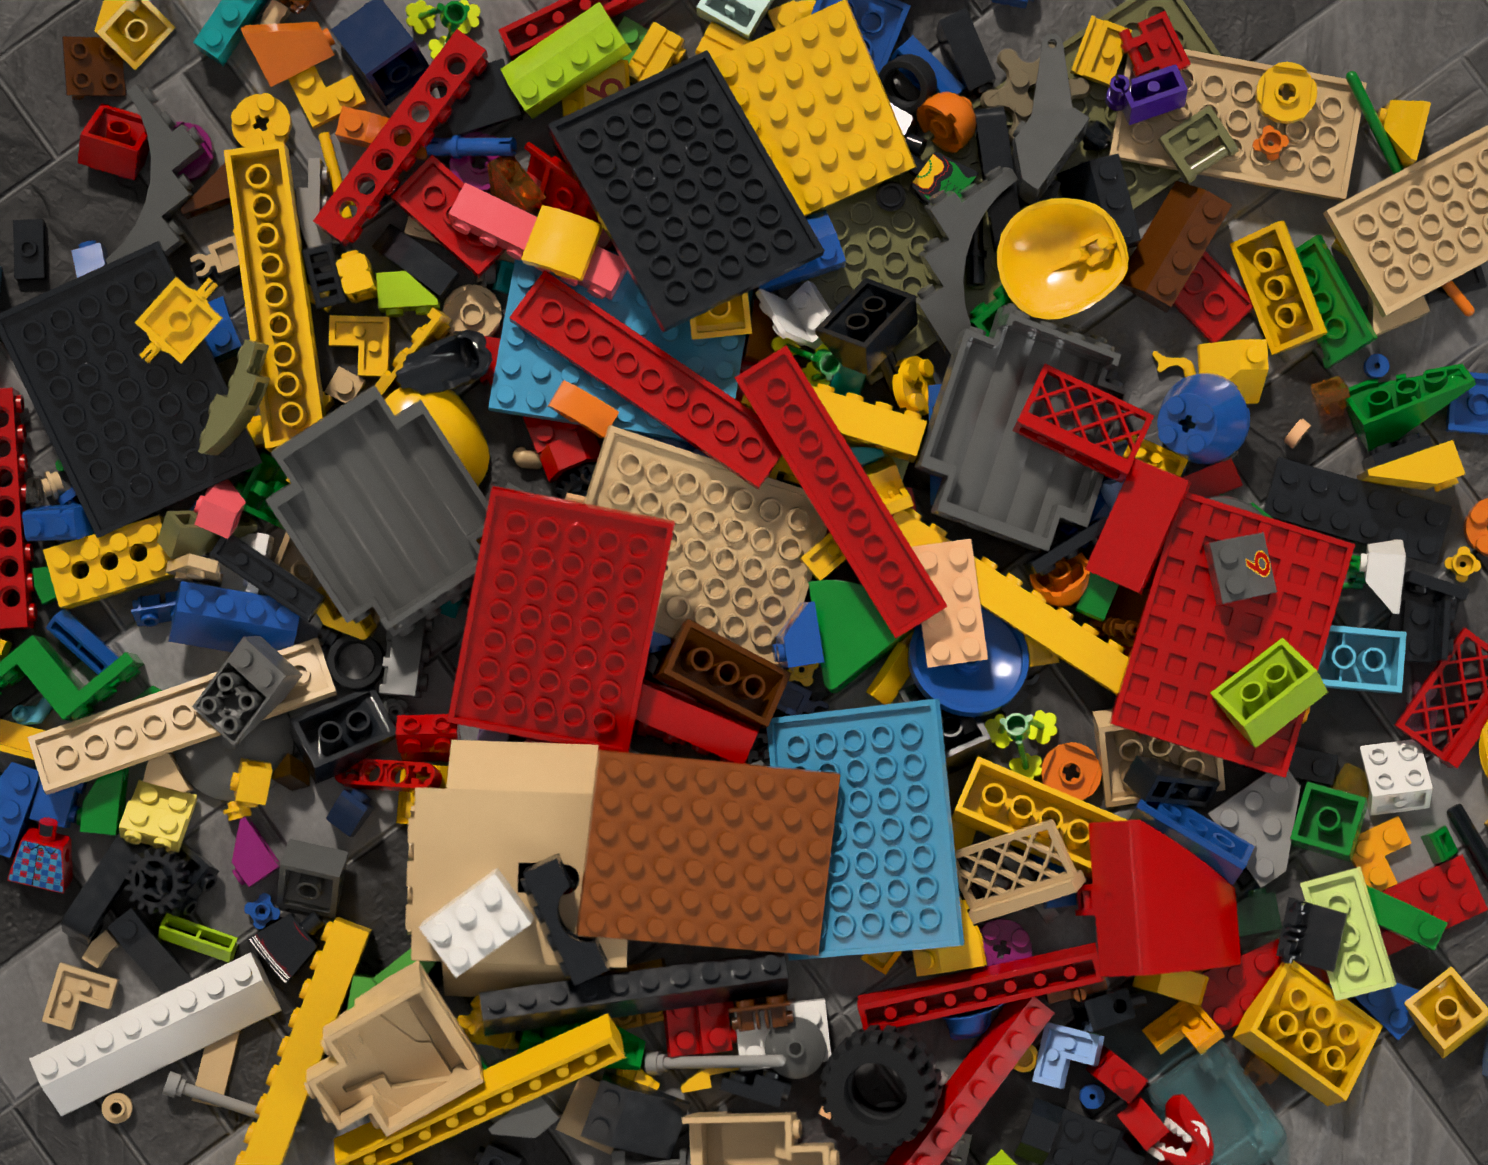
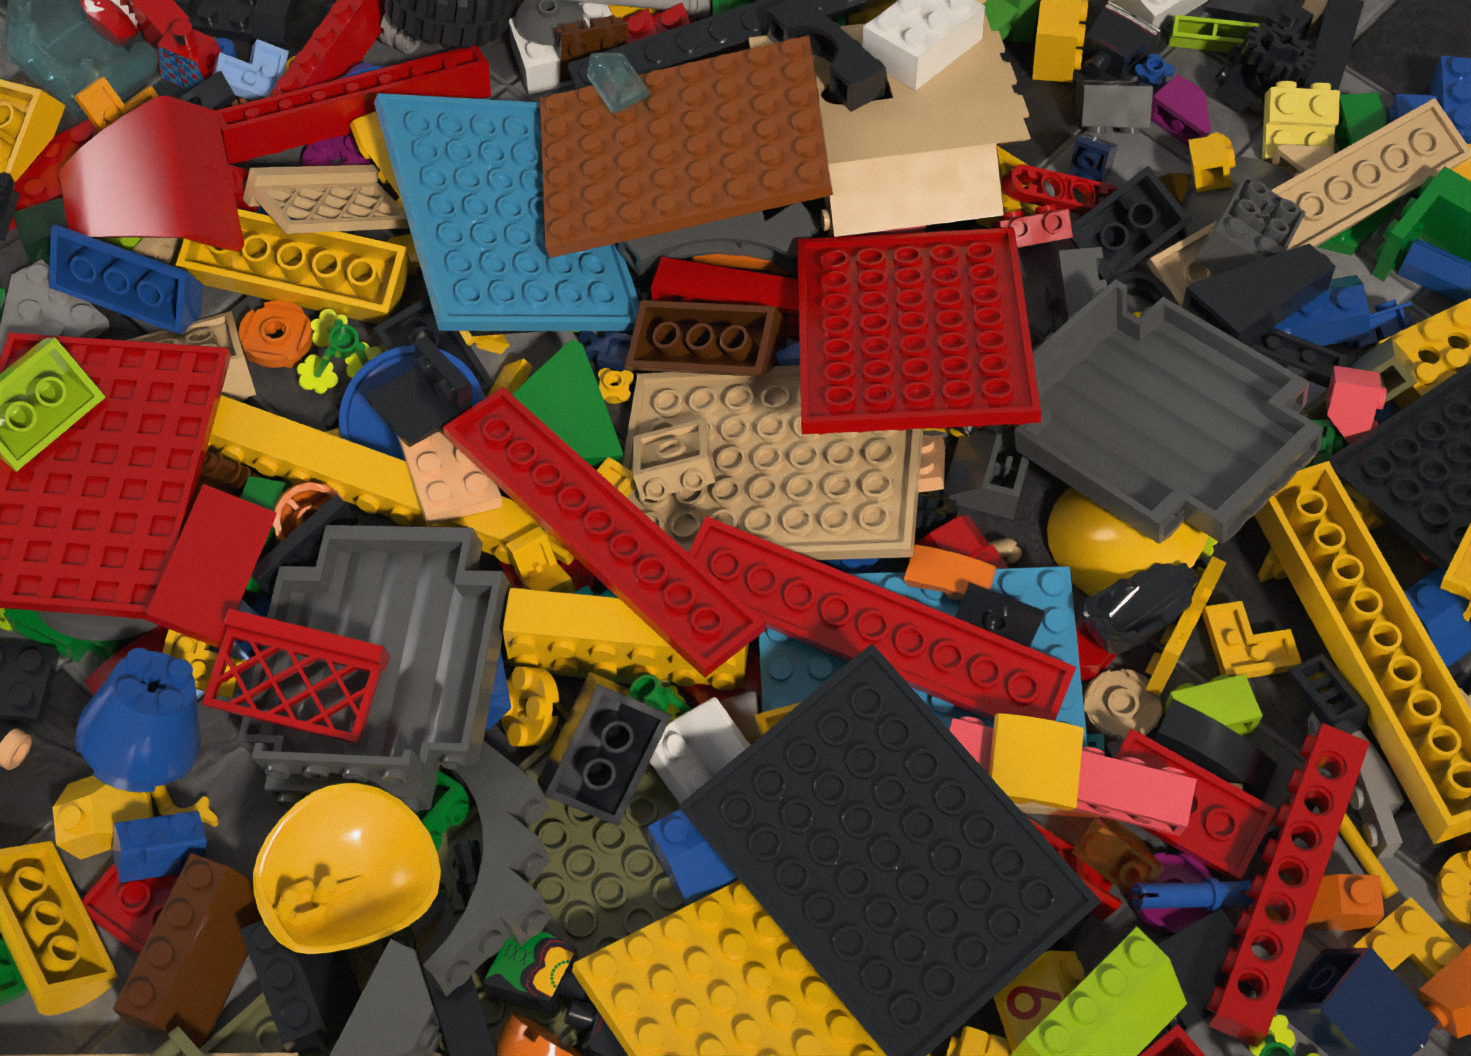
camera: 165 degrees right, 25 degrees down
(43, 858) = (1407, 67): torso -> none
(195, 568) = (1355, 333): tan wing -> none
(233, 412) = (1380, 502): olive slope -> none
(272, 606) = (1261, 293): none -> black slope
(344, 385) = (1253, 591): tan plate -> none
(357, 276) = (1286, 704): yellow brick -> none
(555, 366) = (999, 614): none -> black plate
(750, 938) = (615, 80): none -> clear light blue slope
(771, 562) = (673, 460): none -> tan plate
(799, 639) = (623, 383): blue slope -> none
(890, 196) = (599, 936): black plate -> none
(963, 640) = (424, 397): none -> black bracket
(1169, 783) = (169, 320): black slope -> none
(1194, 327) = (156, 845): none -> blue brick
(1240, 568) = (72, 528): dark grey slope -> none

